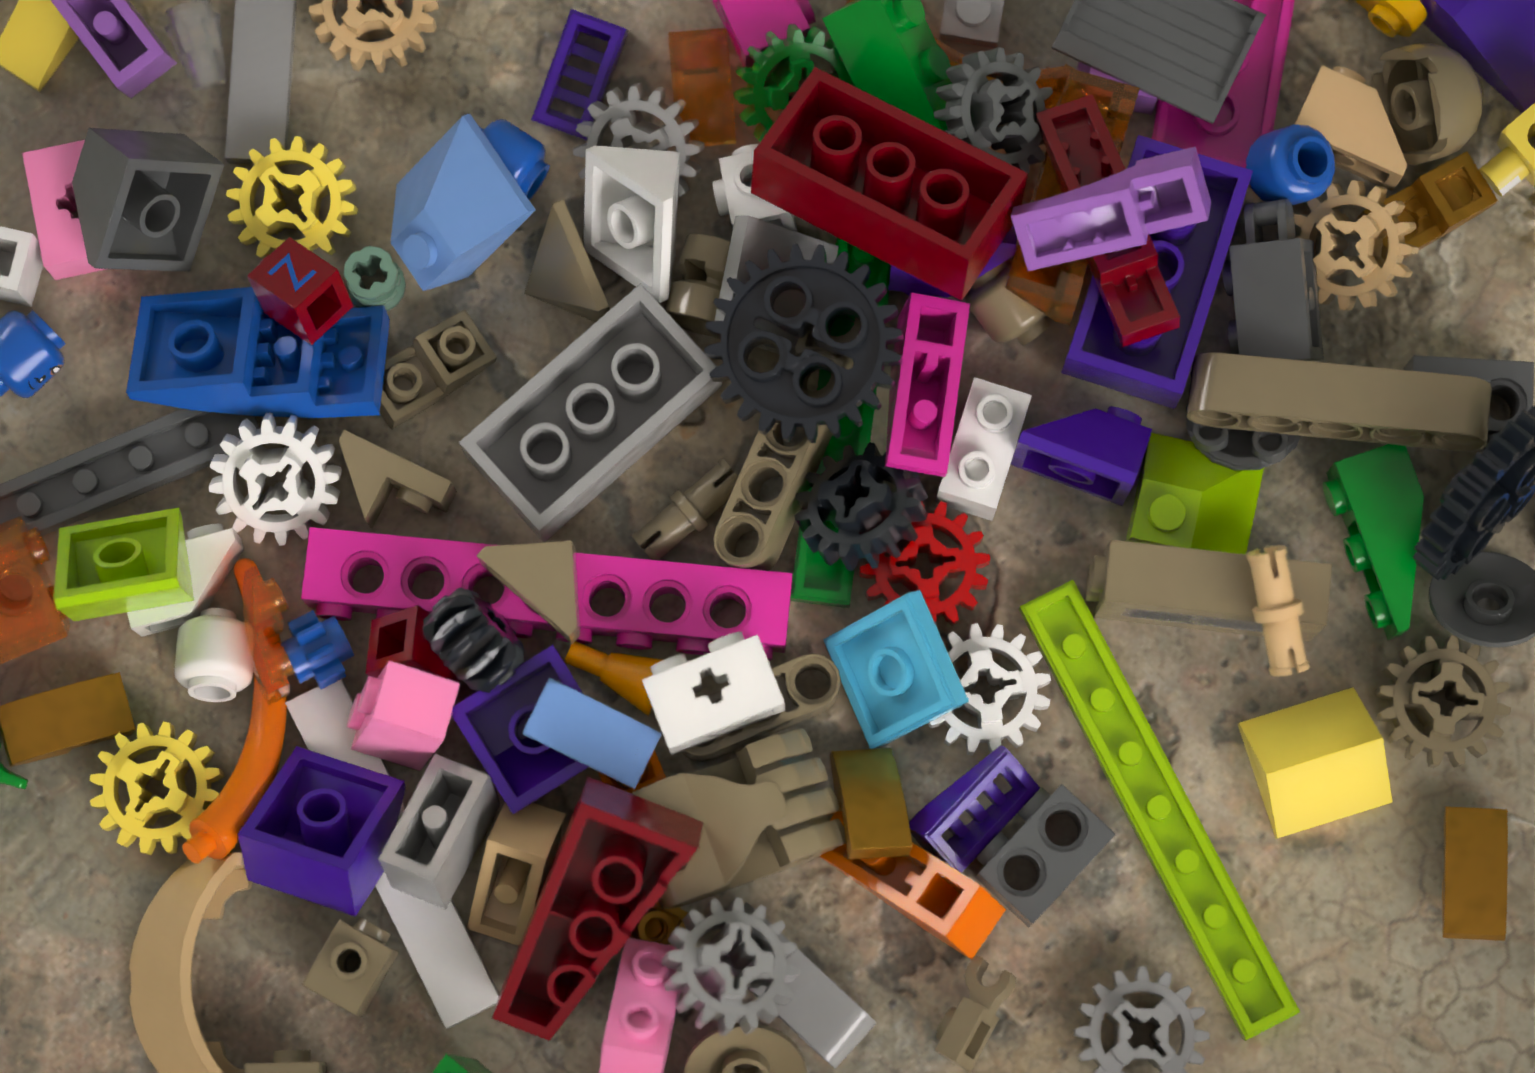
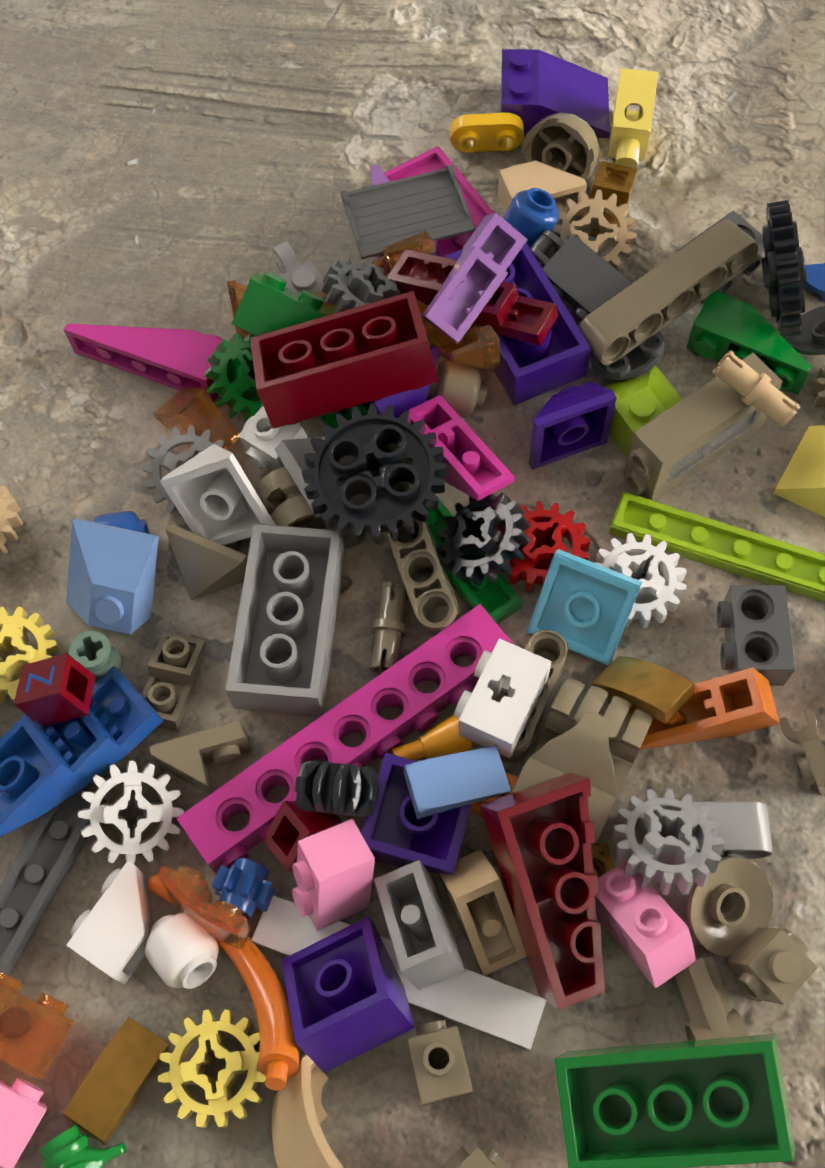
camera: 40 degrees left, 15 degrees down
(122, 565) = (75, 943): lime slope -> none
(542, 578) = (344, 722): dark tan slope -> none
(567, 45) = (113, 437): dark purple slope -> none
(961, 796) = (693, 657): dark purple slope -> none
(983, 448) = (517, 451): white brick -> none

